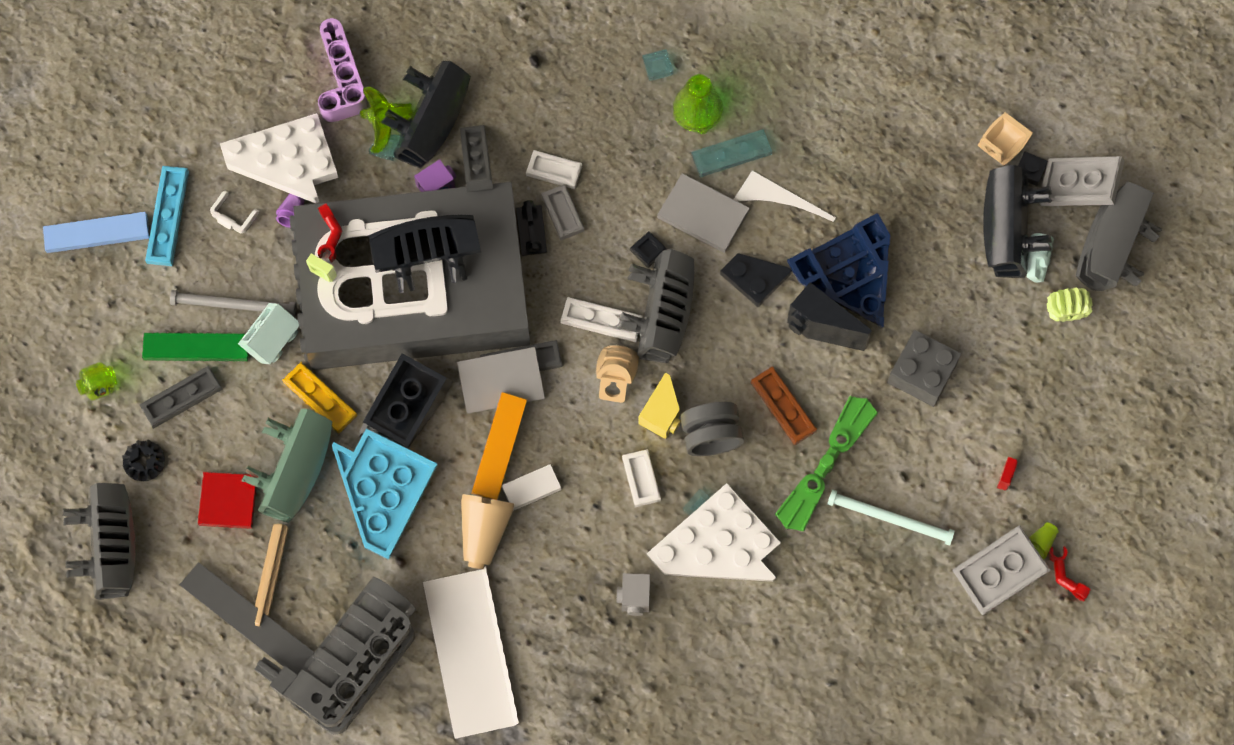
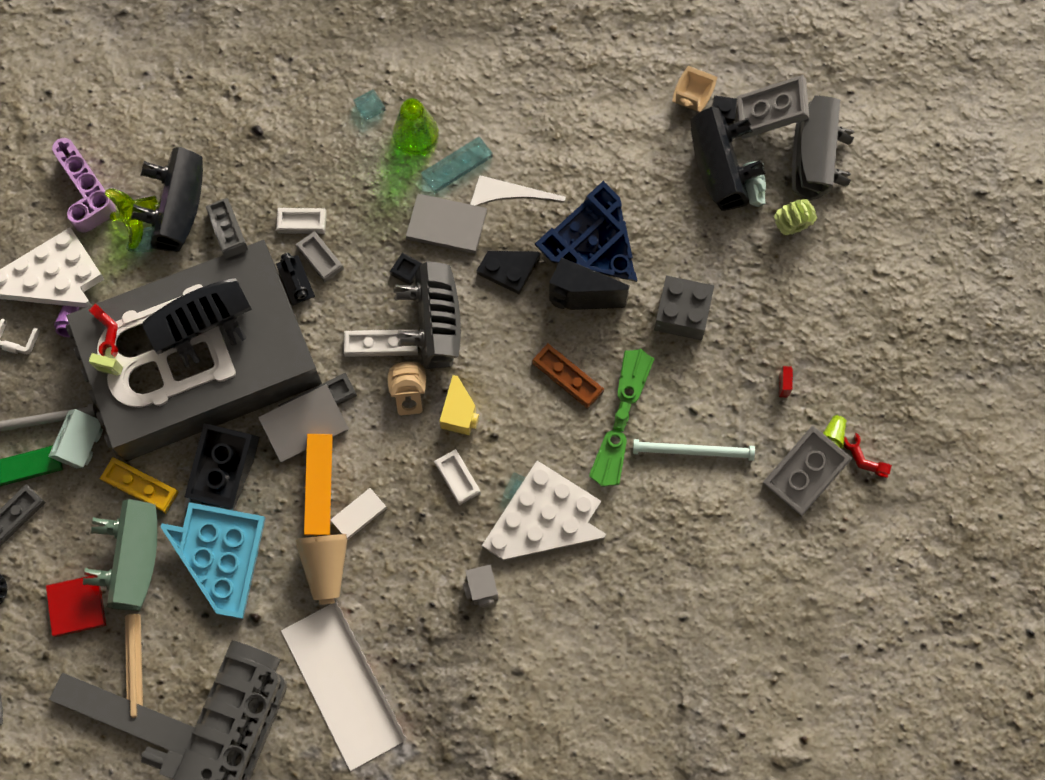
camera: 15 degrees left, 0 degrees up
(435, 177) = (193, 254): medium lavender brick -> none
(712, 429) = (509, 414): dark grey wheel -> none

